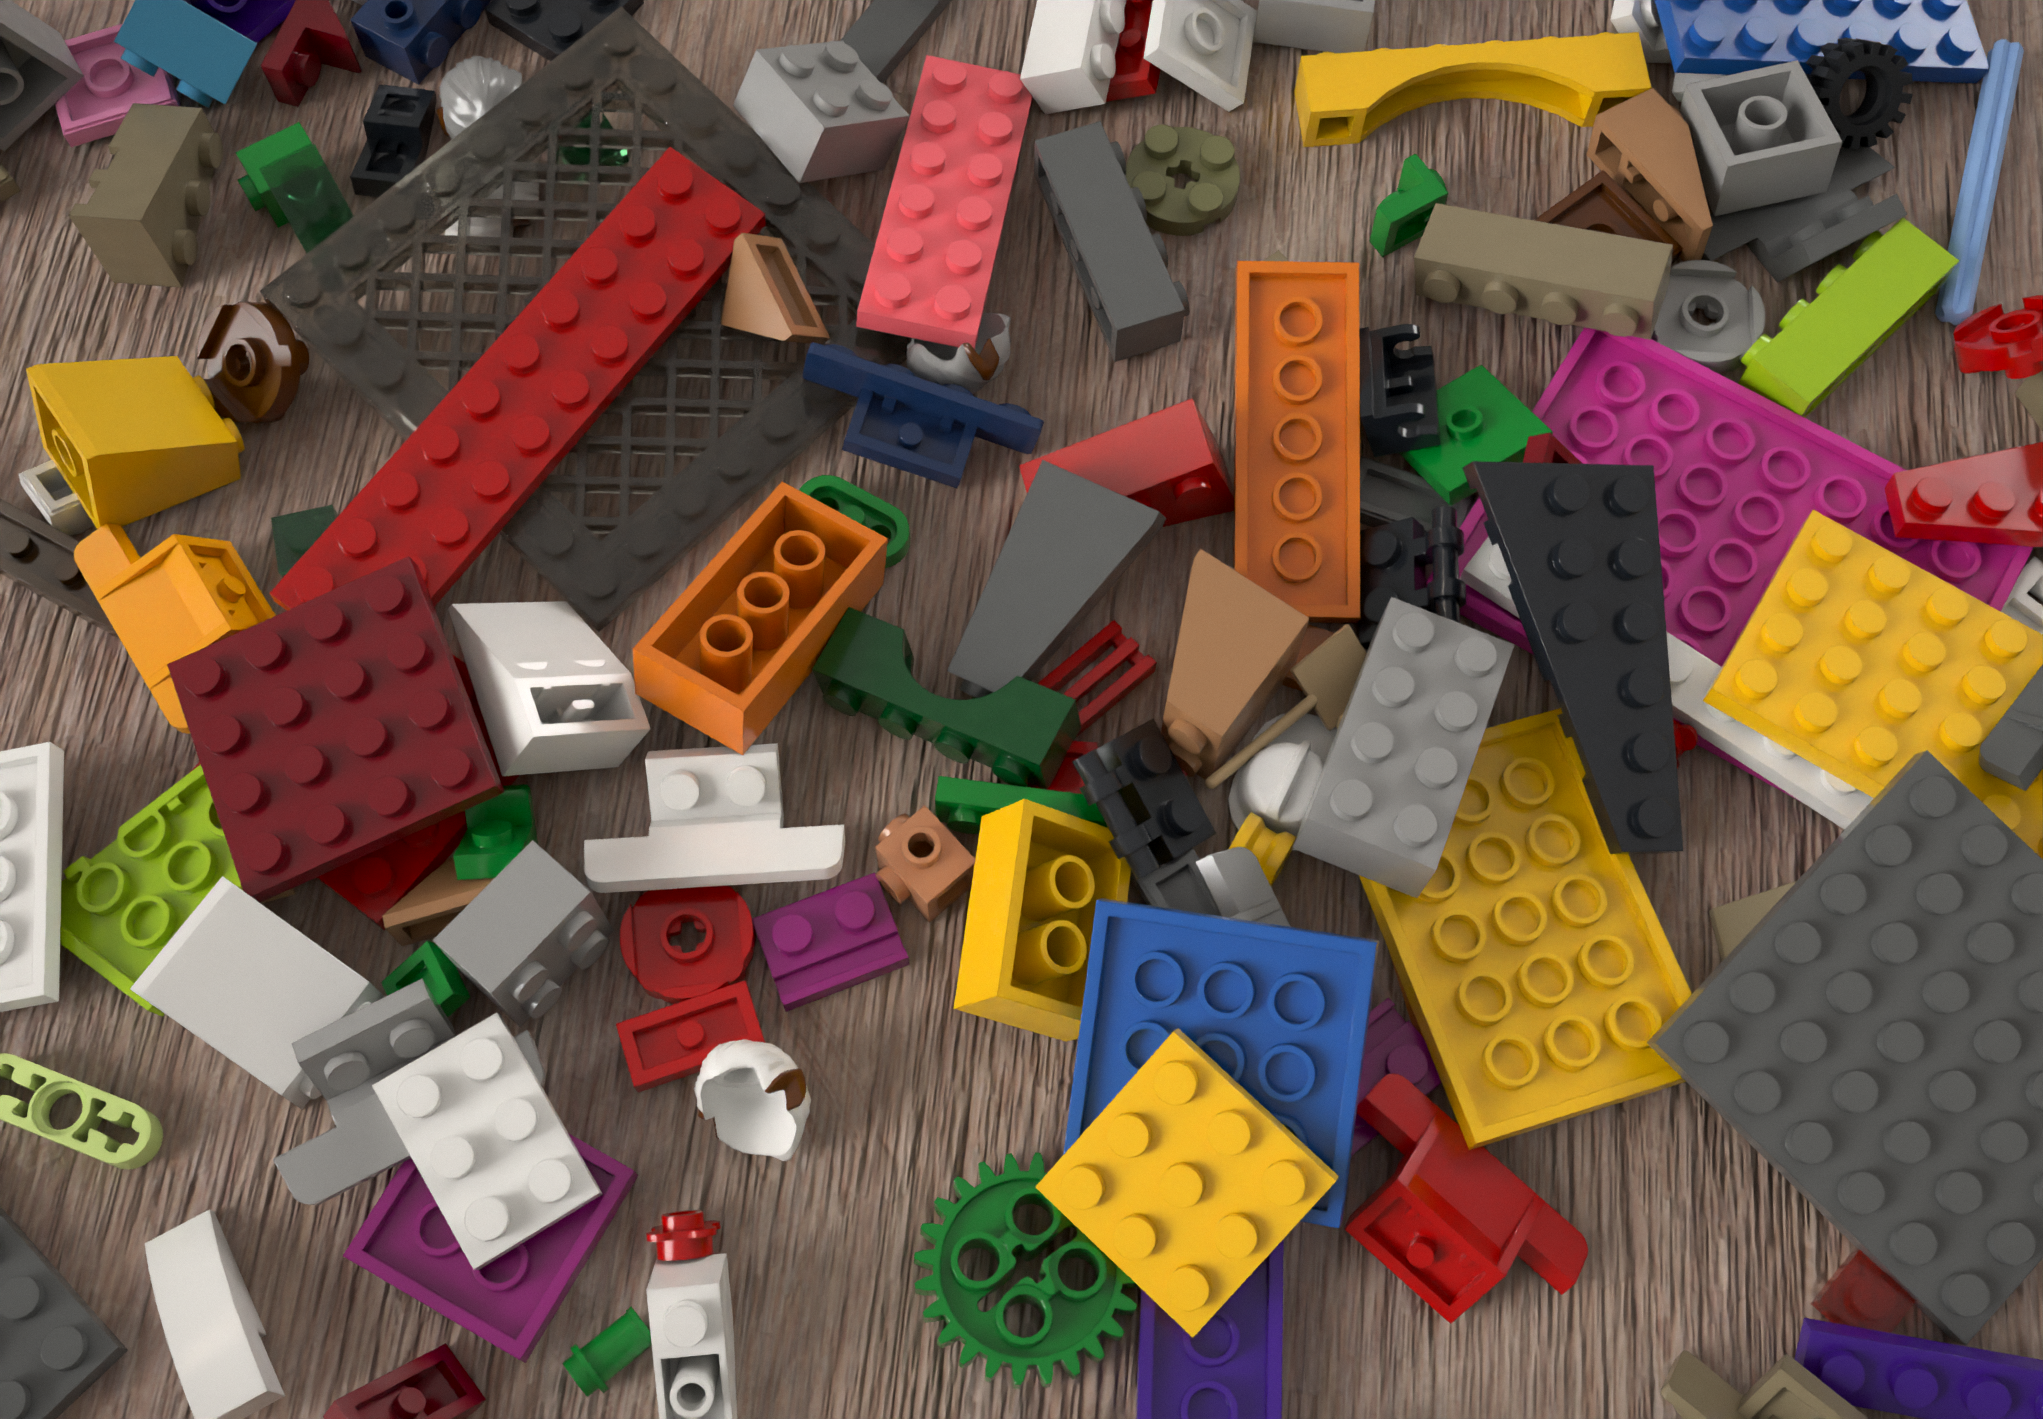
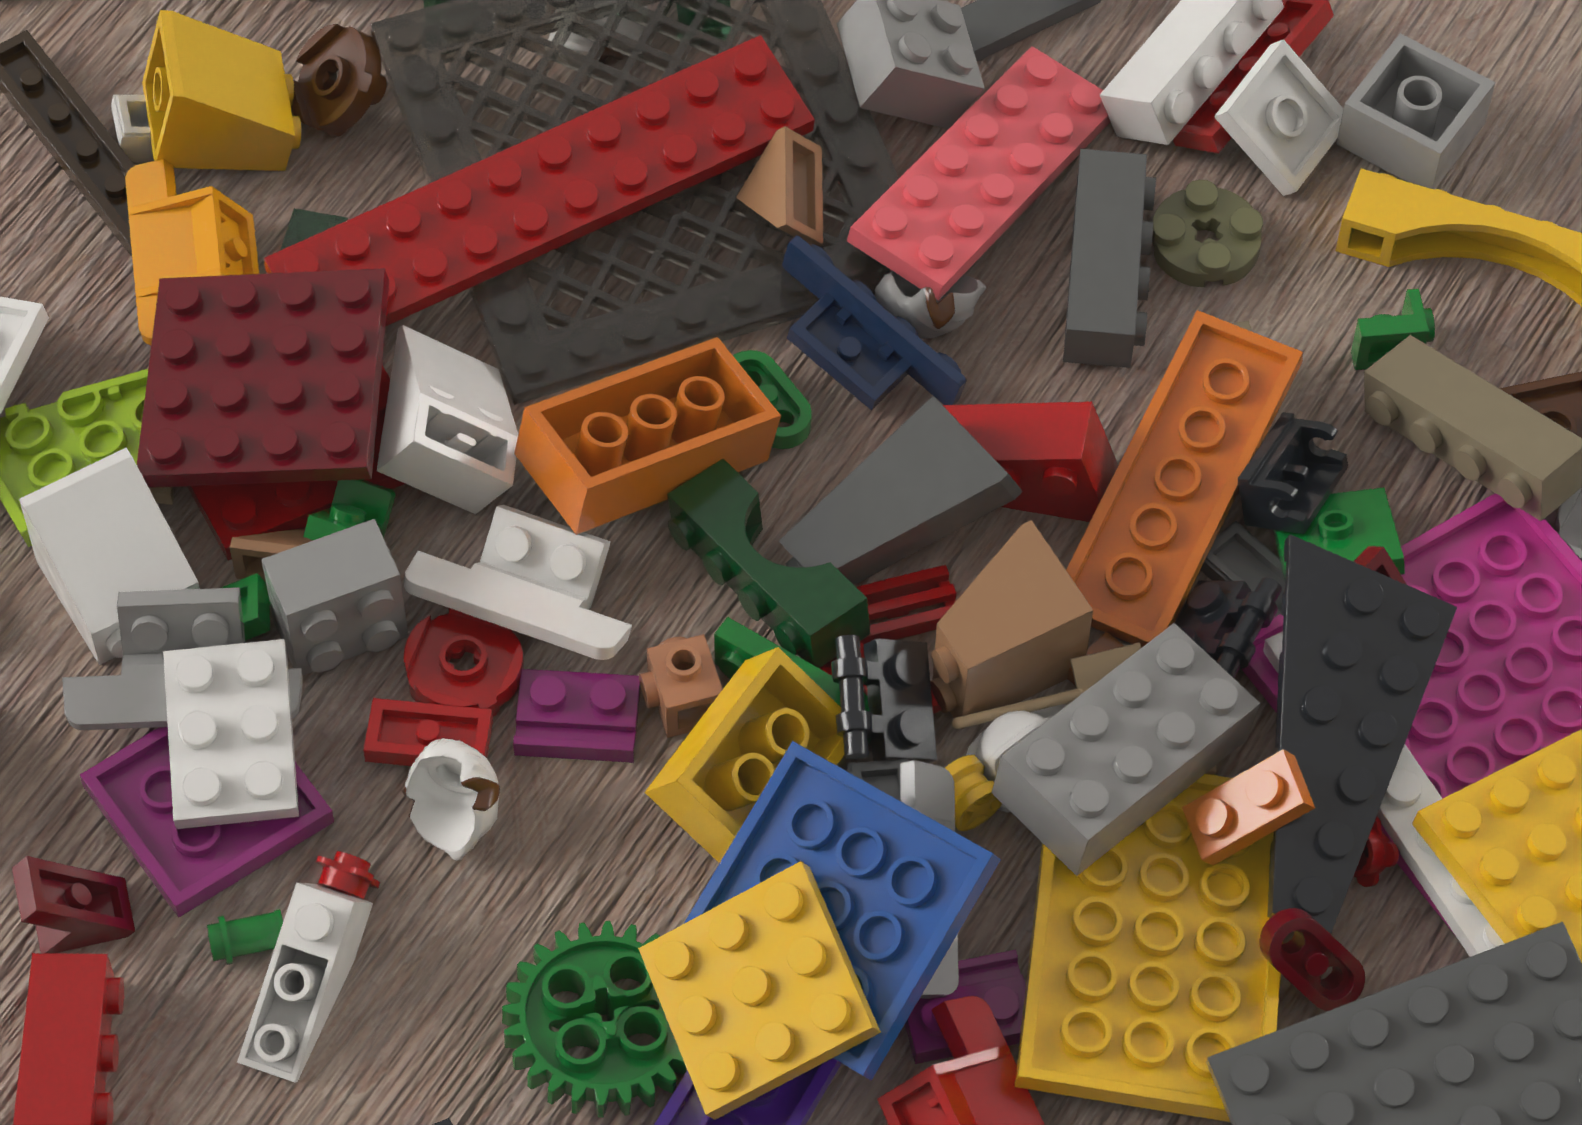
camera: 25 degrees right, 10 degrees down
(1553, 756) = (1248, 807): none -> orange plate
(1679, 882) = (1309, 956): none -> dark red plate

